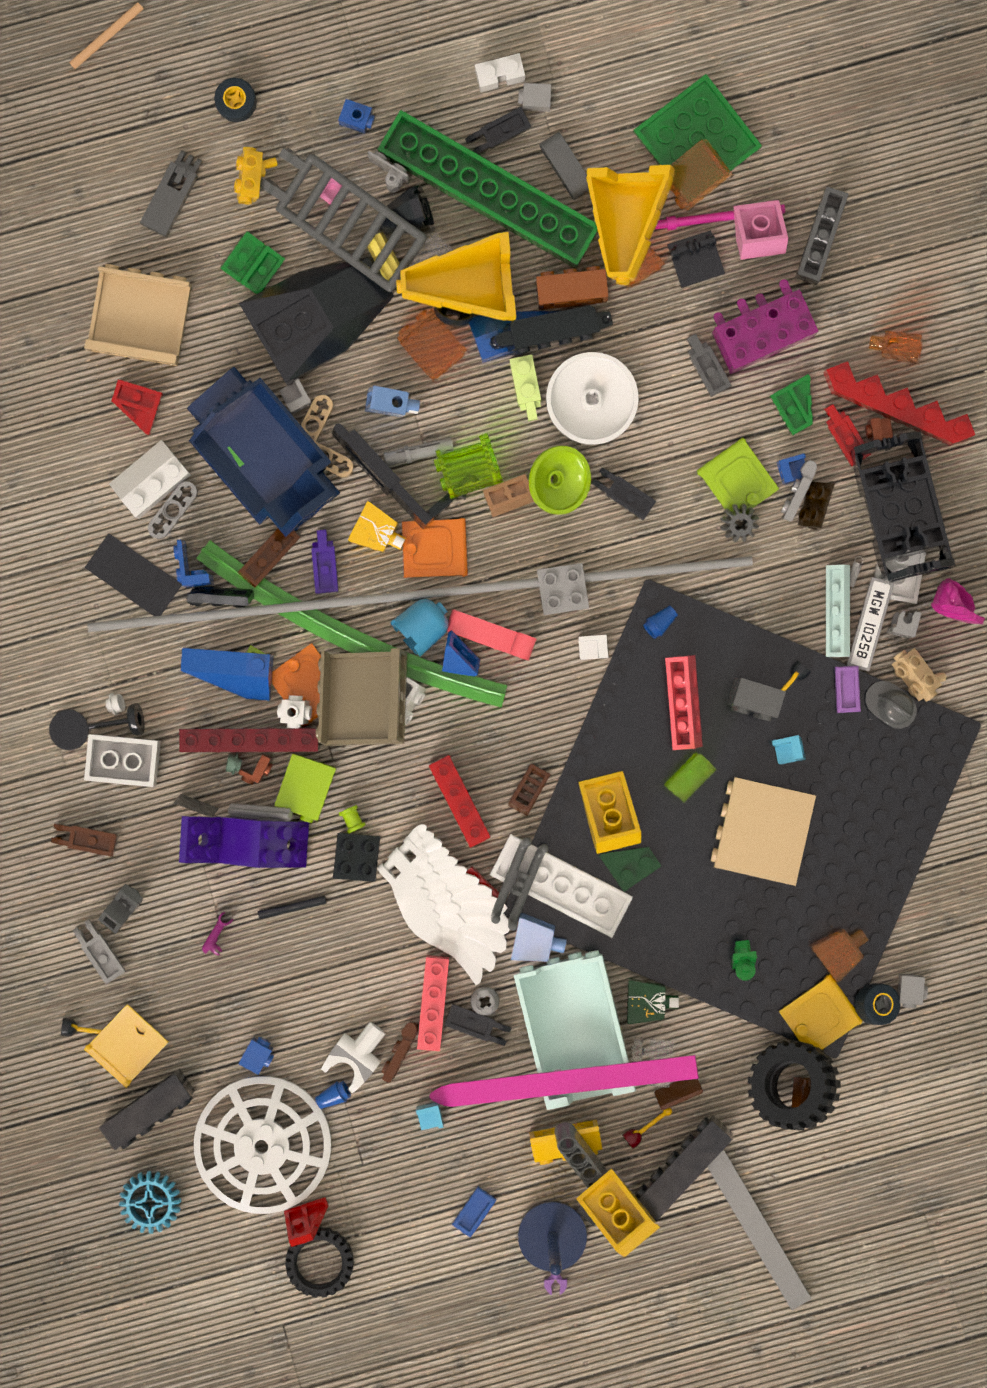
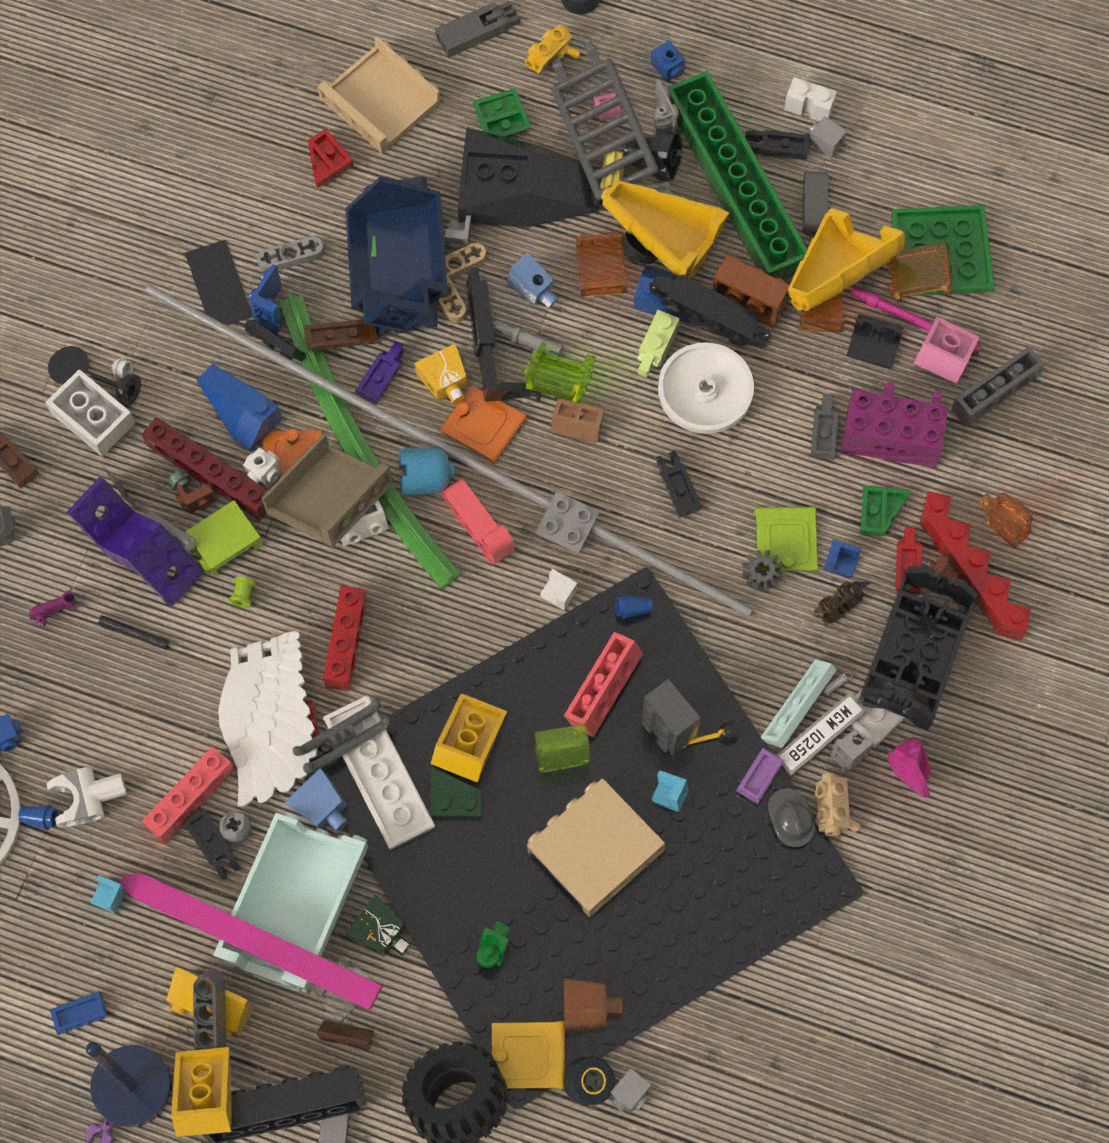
camera: 35 degrees right, 20 degrees down
(149, 479) = (290, 220): white slope -> none
(356, 857) = (220, 626): black hinge -> none
(400, 1049) = (126, 819): reddish brown hinge -> none
(459, 657) = (435, 517): blue slope -> none
(531, 801) = (415, 680): reddish brown slope -> none
(570, 480) = (644, 434): lime dish -> none
(634, 1136) = (274, 1046): hinge -> none
(799, 489) = (835, 578): light grey hinge -> none

